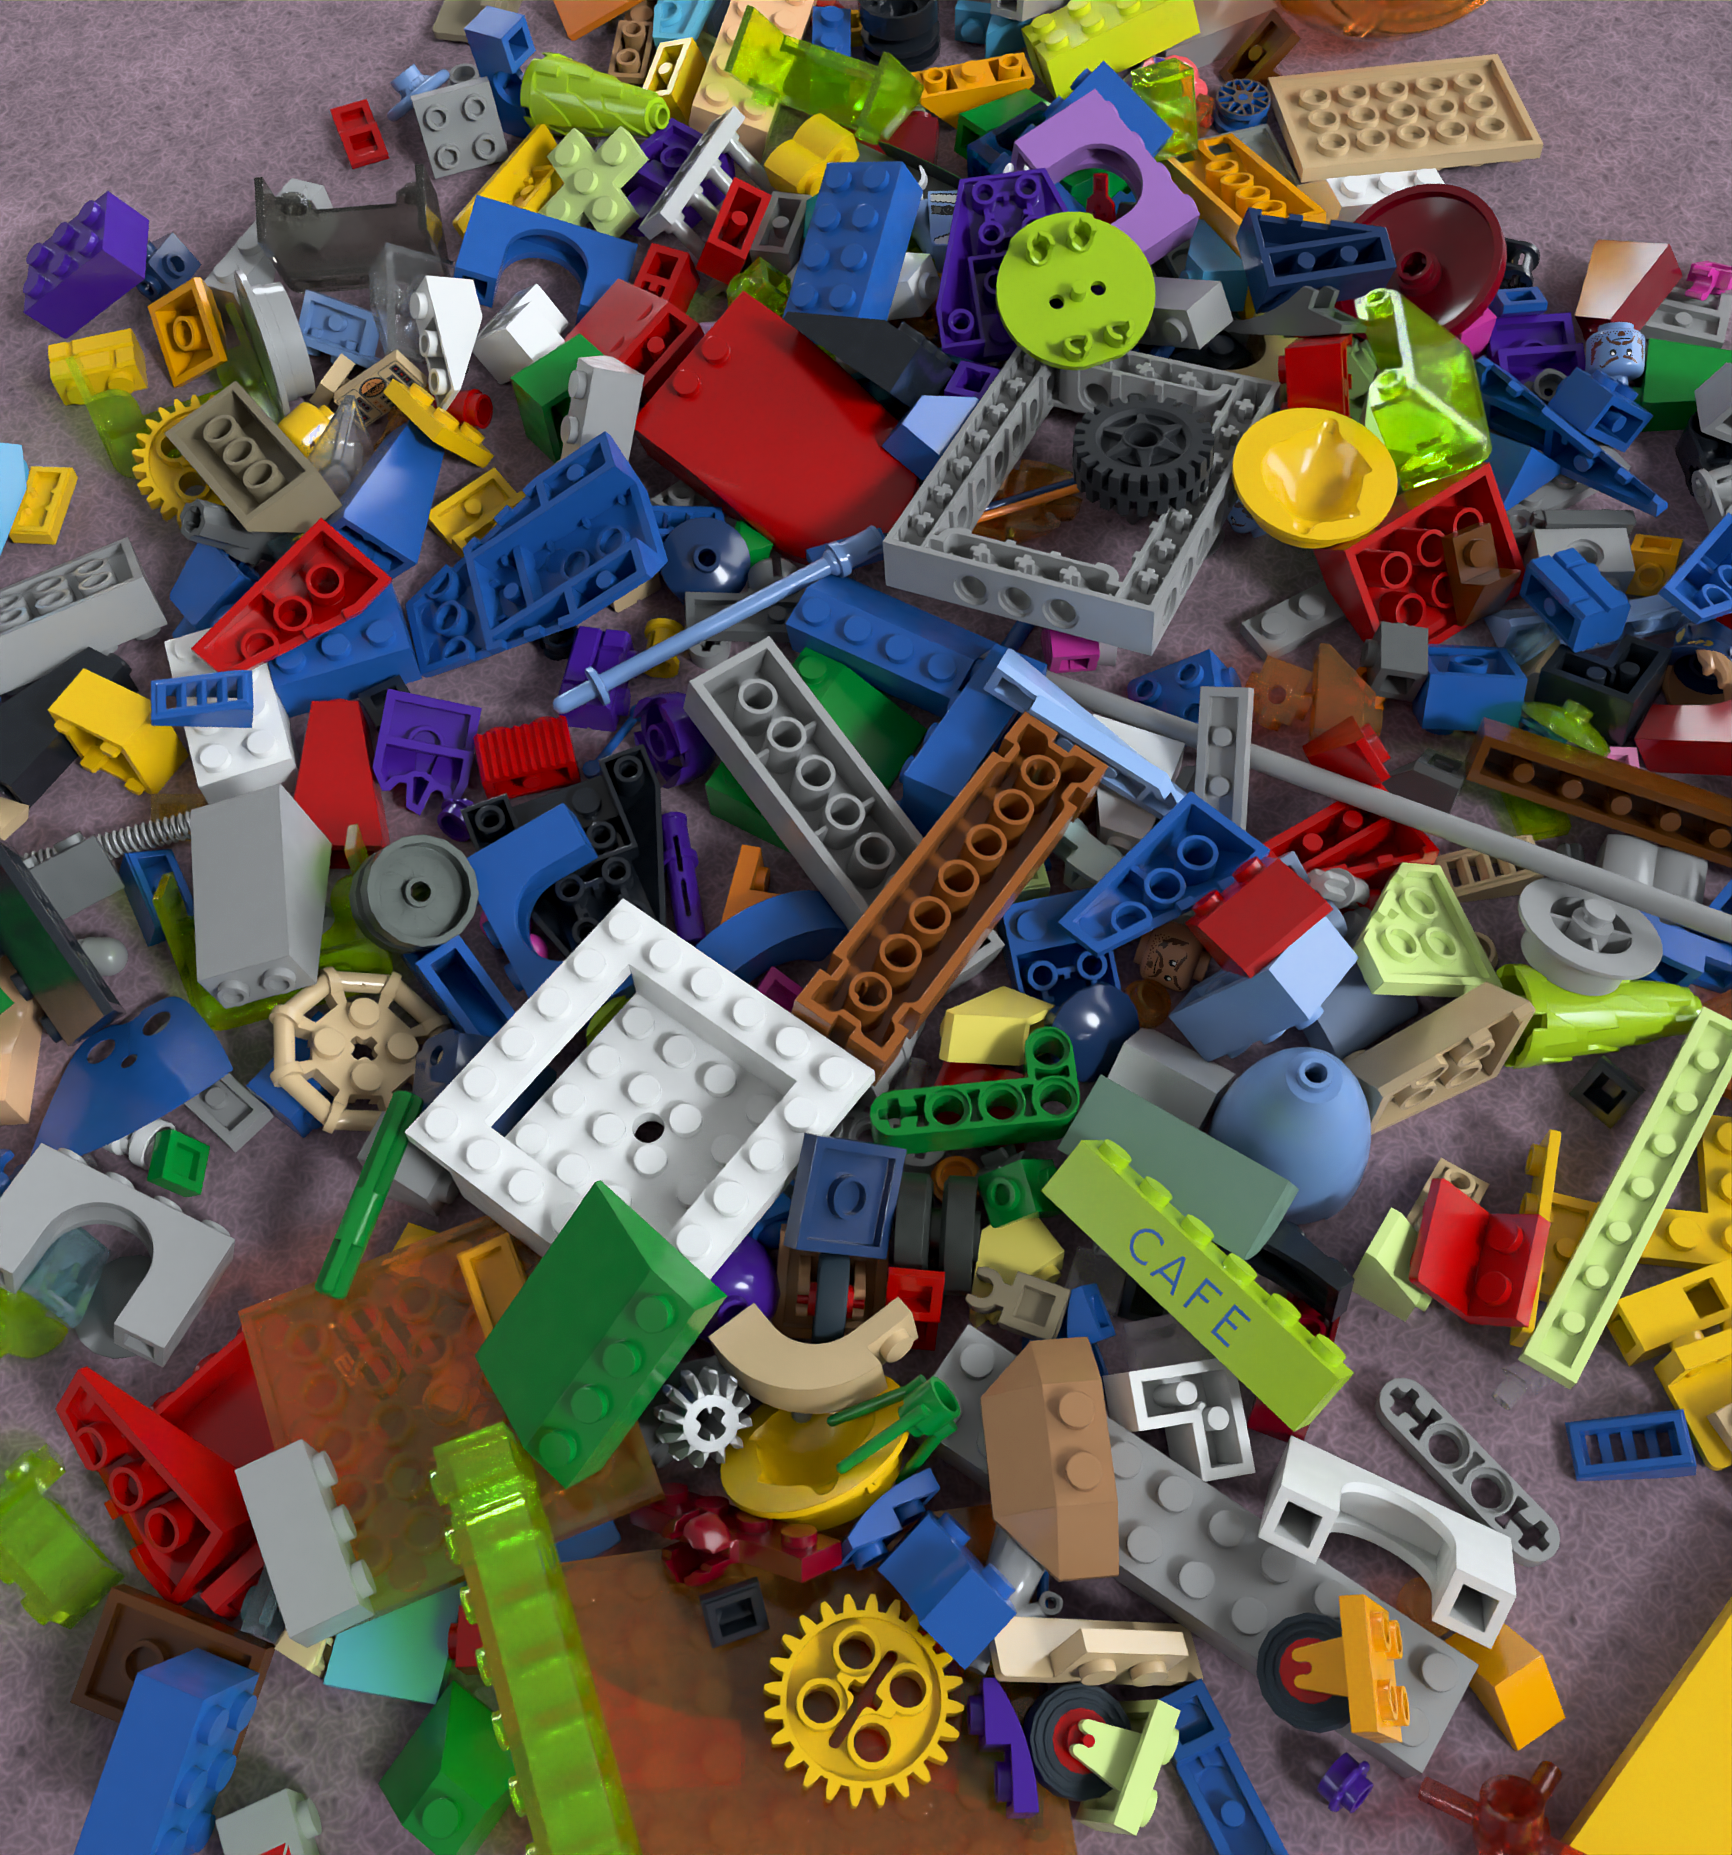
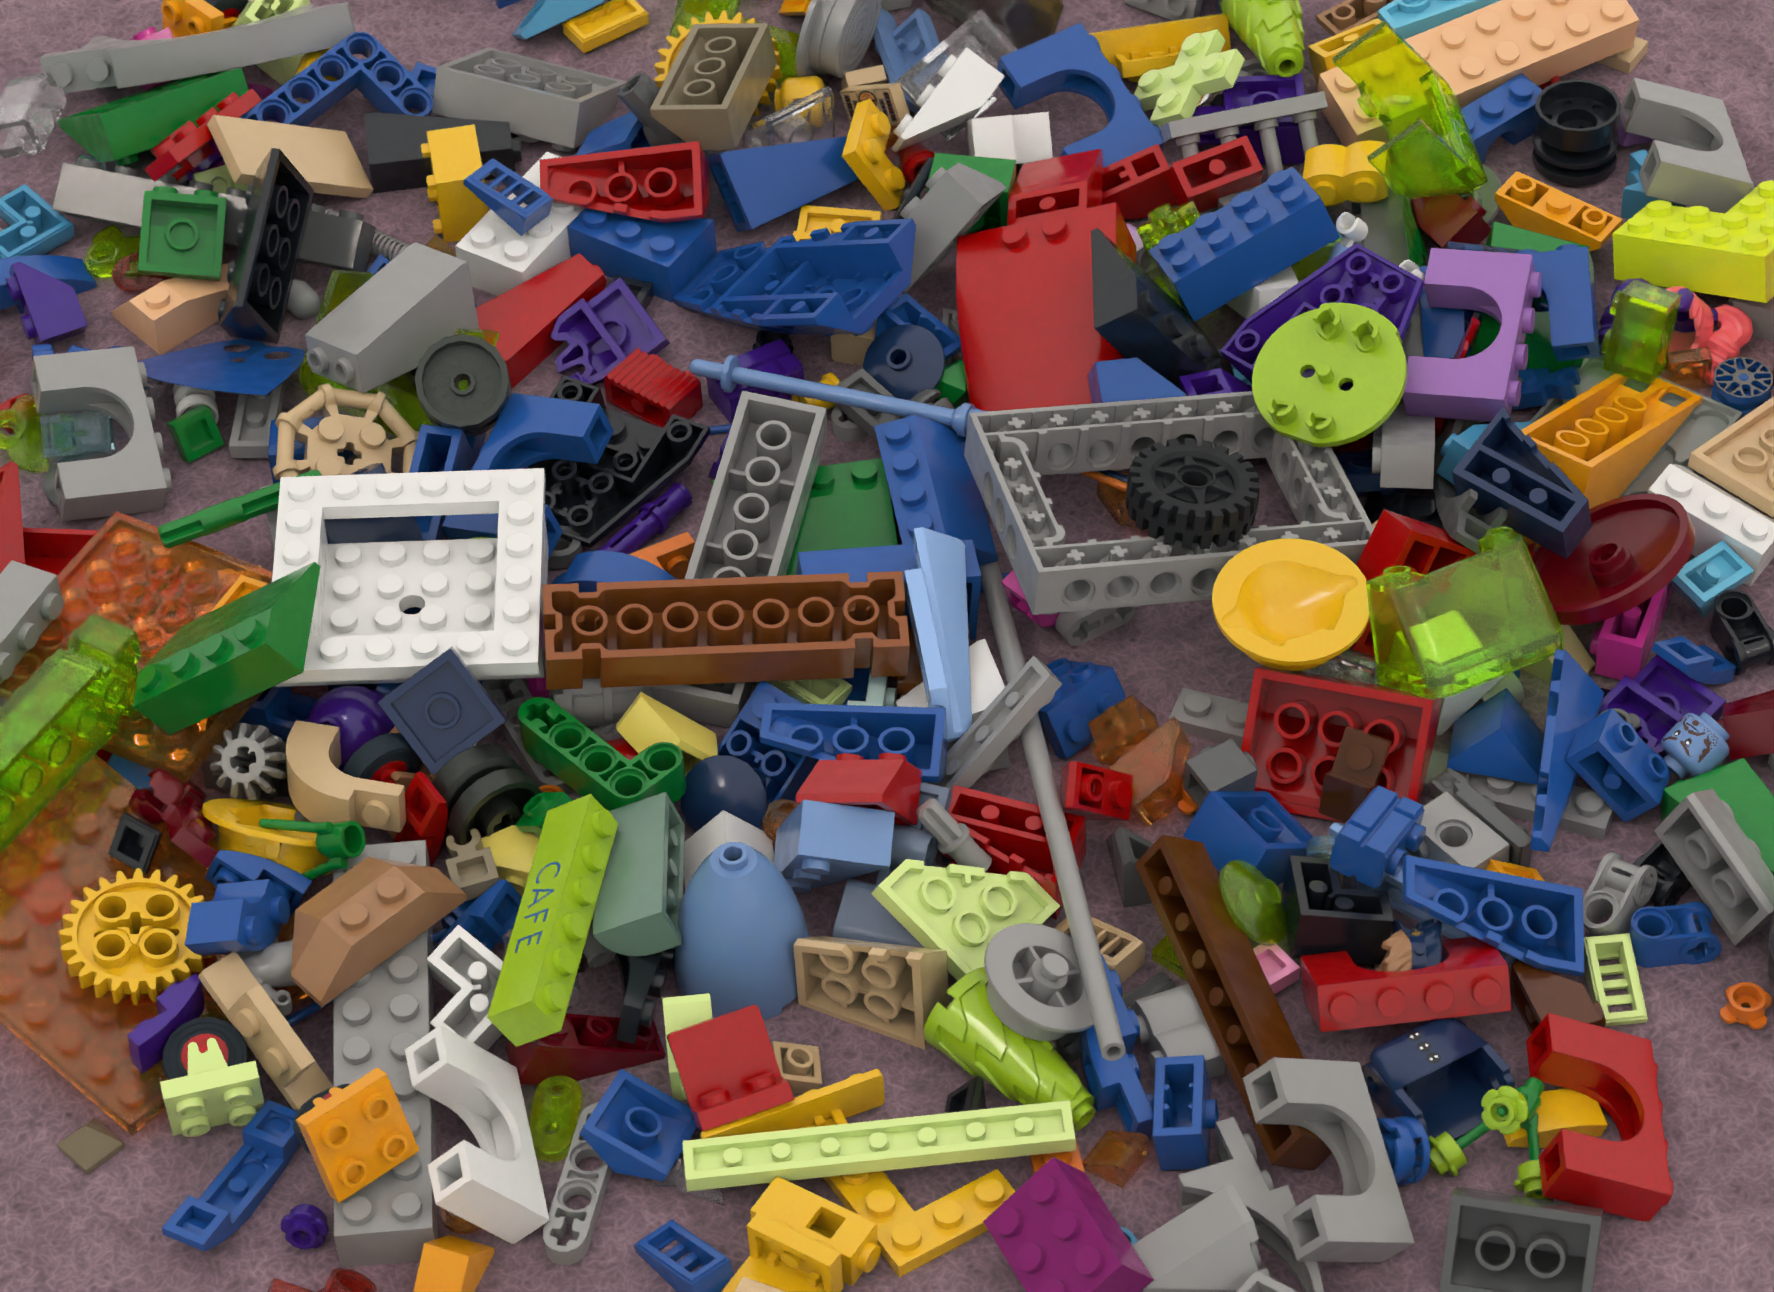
camera: 50 degrees right, 15 degrees down
(511, 432) = (916, 187): none -> black wheel
(1362, 1438) = (555, 1114): none -> clear neon green plate
(1454, 1375) = (638, 1128): none -> blue slope

